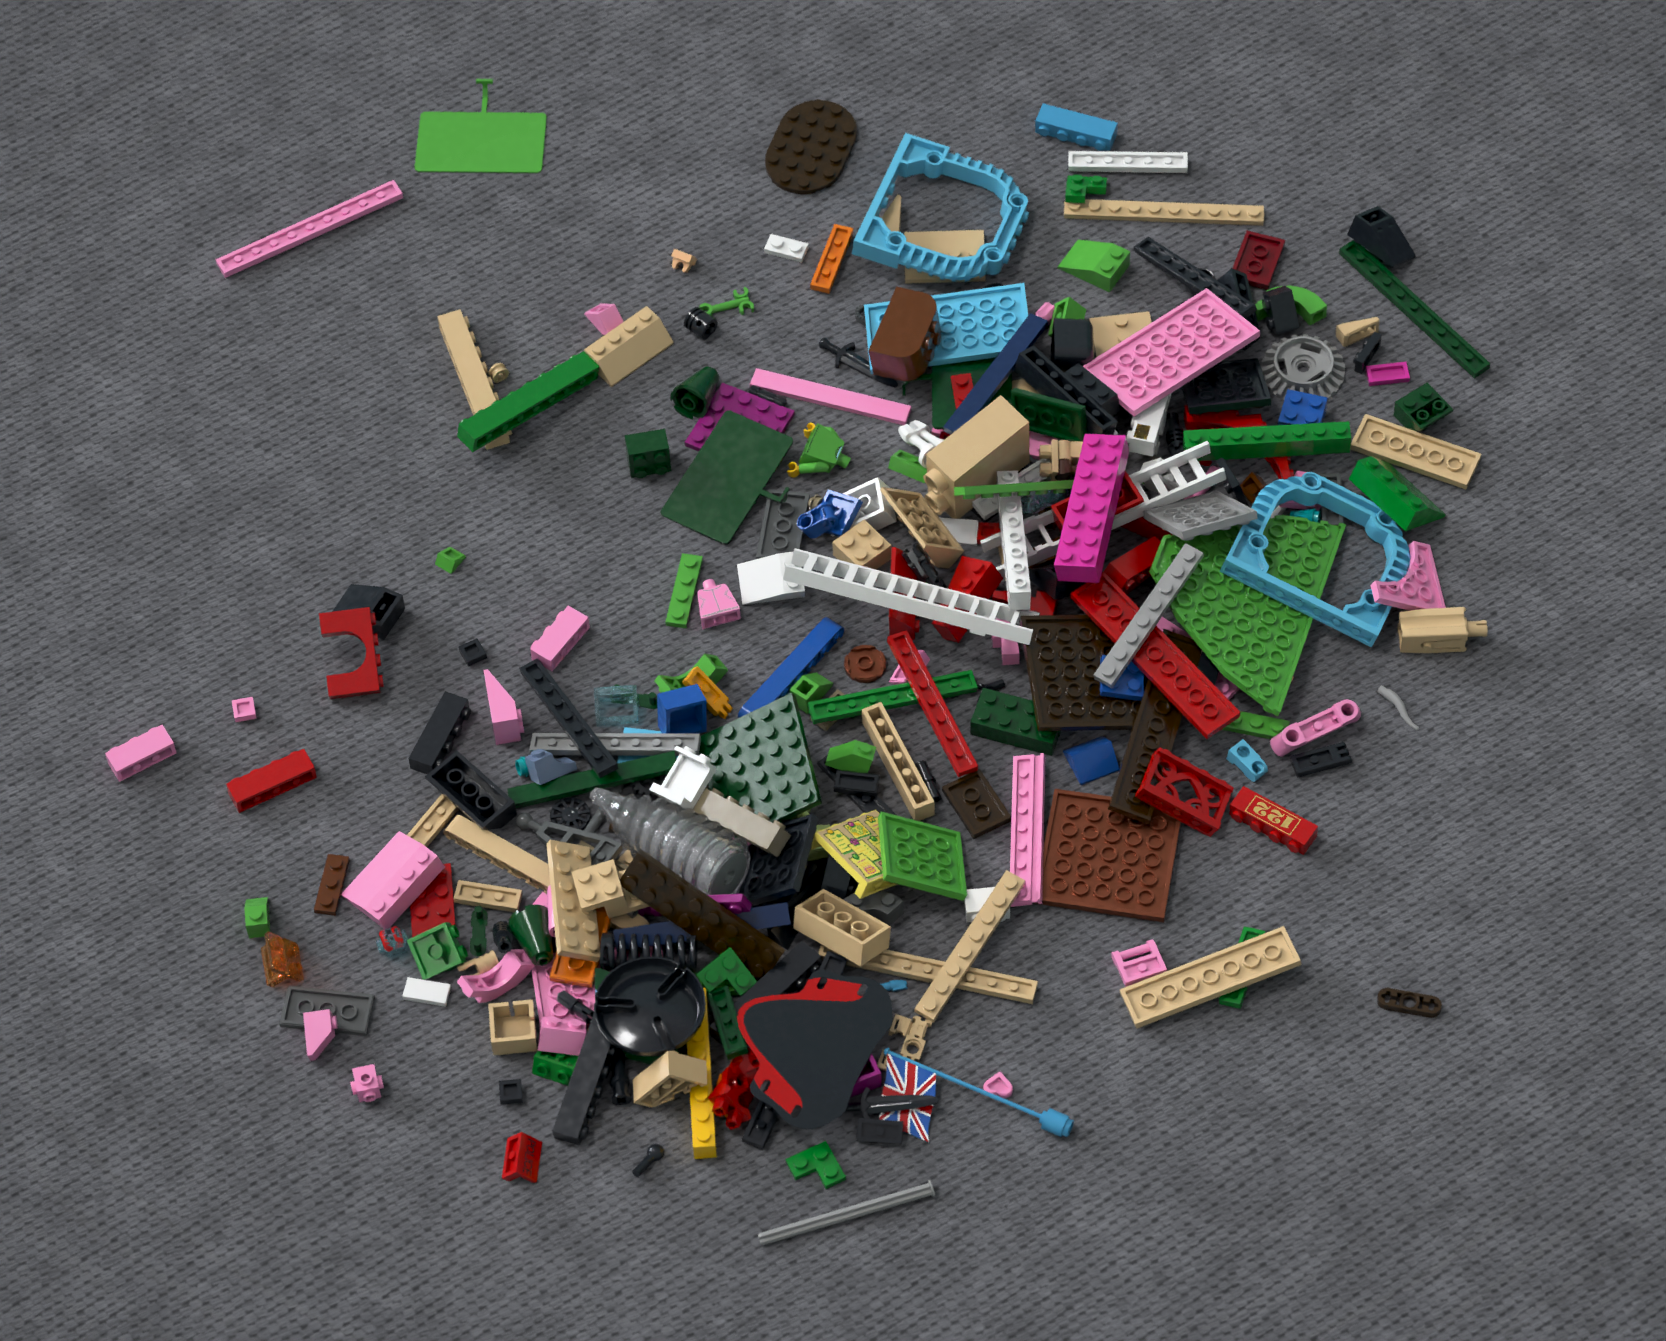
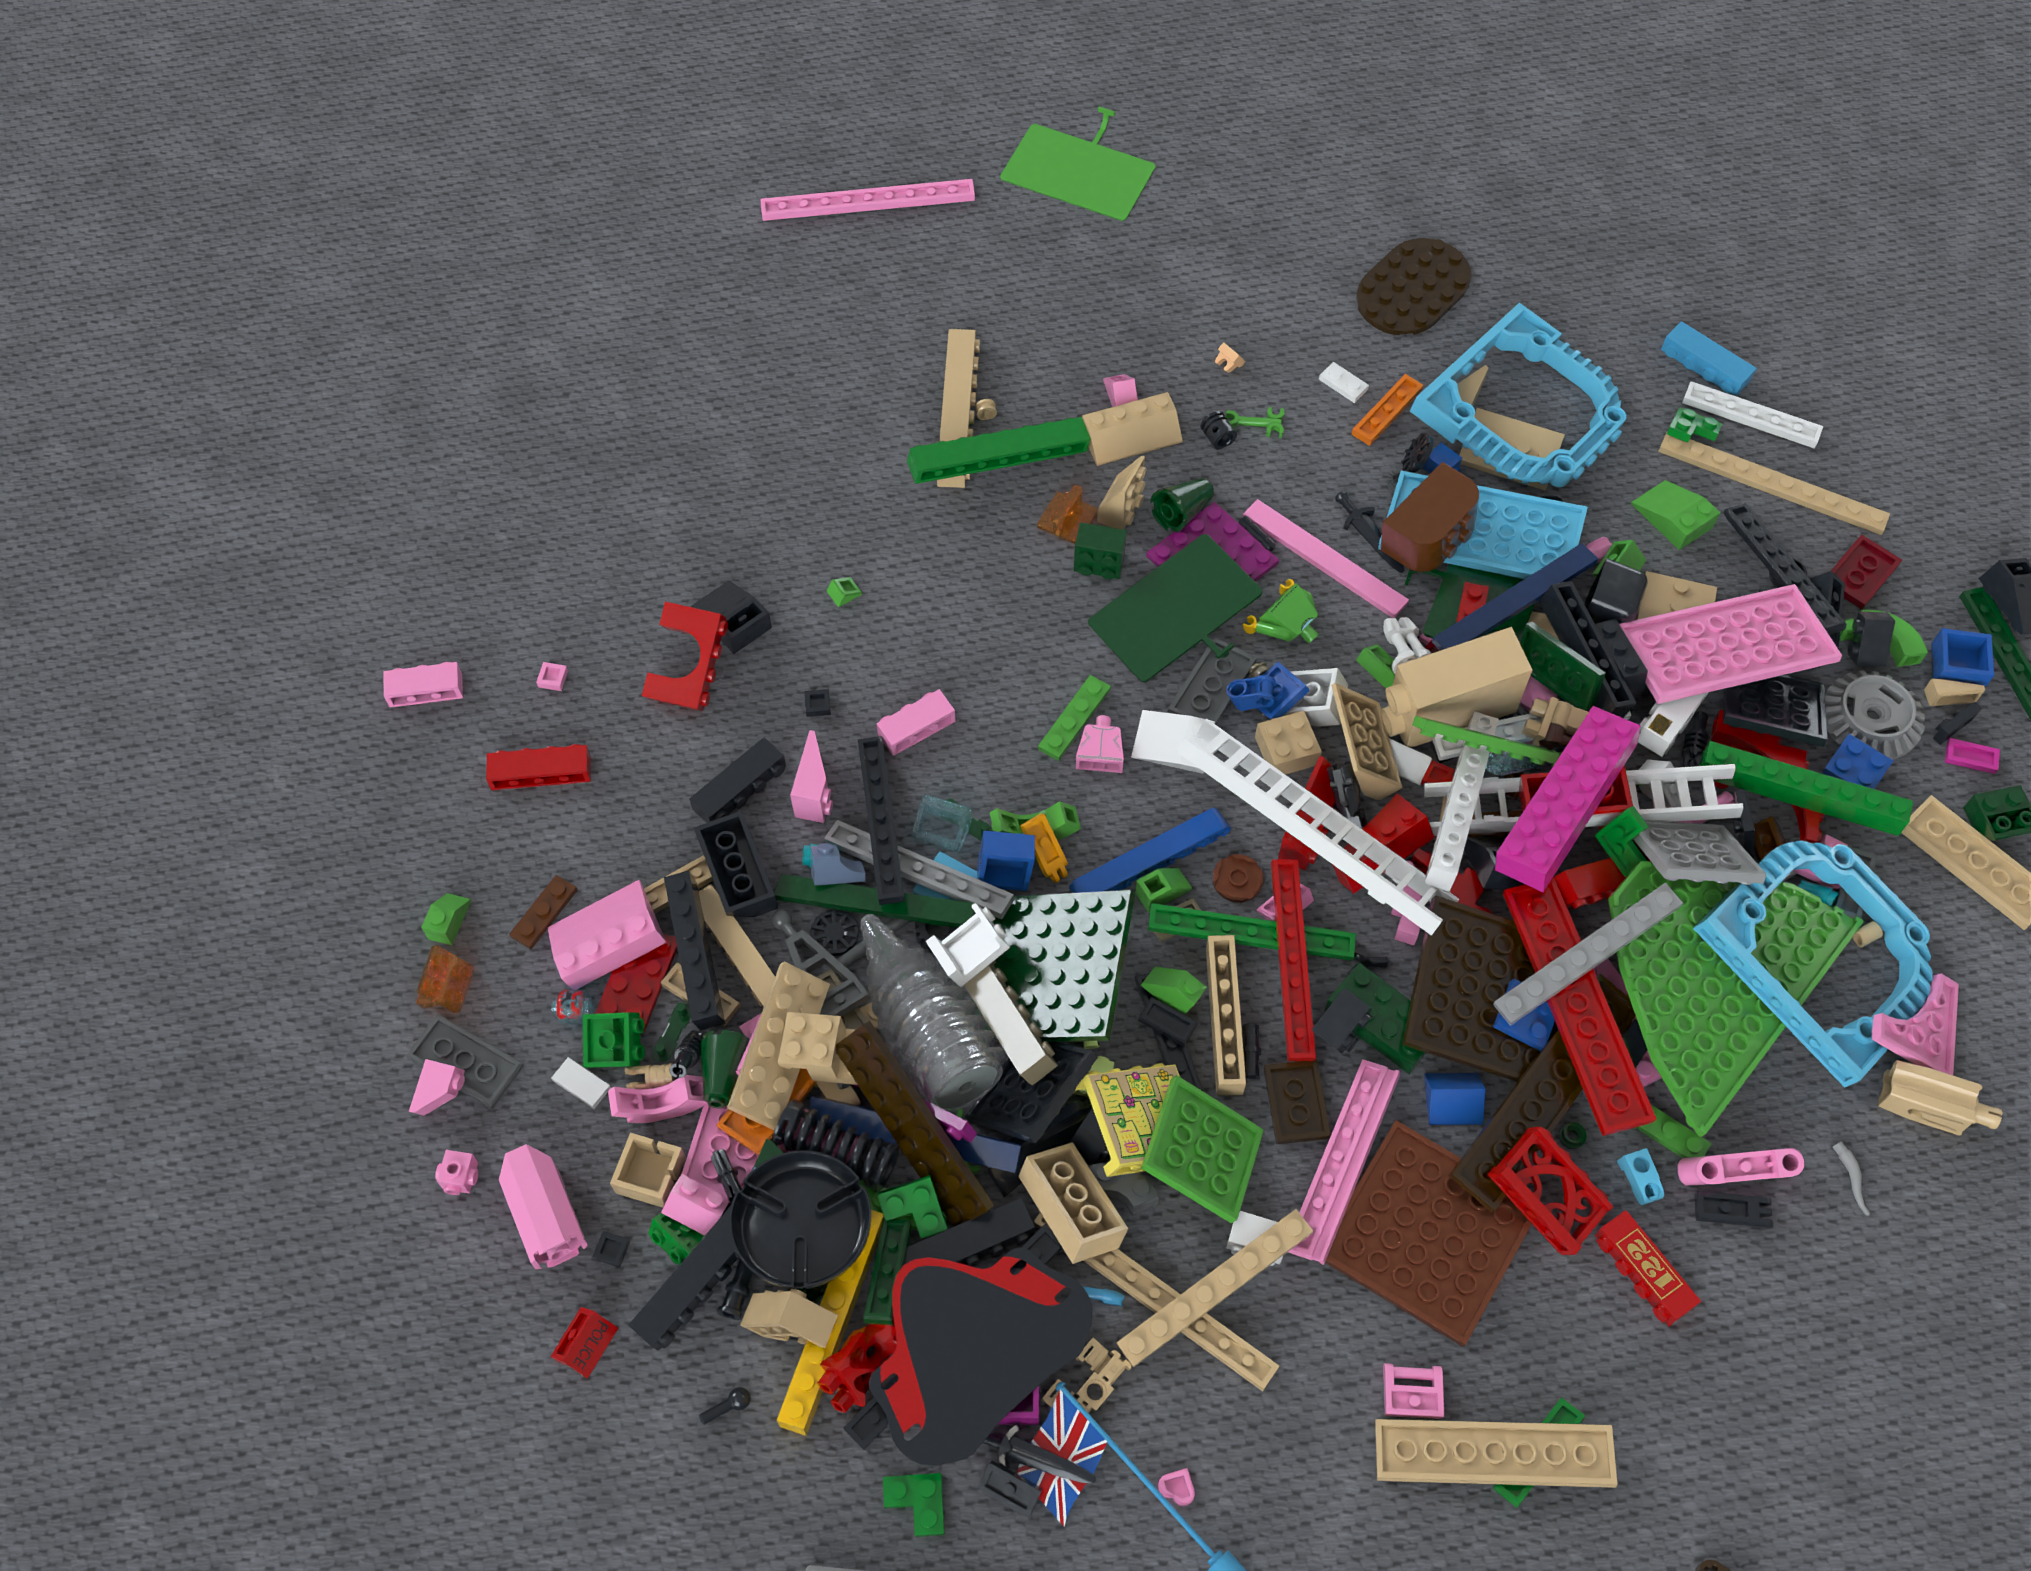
camera: 20 degrees right, 5 degrees up
(445, 1080) = (540, 1207): none -> bright pink brick
(471, 862) = (694, 951): none -> black brick
(606, 435) = (1065, 514): none -> clear orange bracket
(647, 402) = (1123, 496): none -> tan slope
(871, 286) = (1418, 453): none -> black wheel
(890, 282) = (1442, 454): none -> blue brick
(986, 732) = (1341, 1021): none -> black brick
(1141, 527) = (1618, 838): none -> green plate
(1187, 747) = (1575, 1128): none -> dark green plate
(1352, 533) = (1867, 934): none -> tan hinge
(1354, 300) = (1962, 657): none -> blue piece
(1394, 493) = (1936, 907): green slope -> none

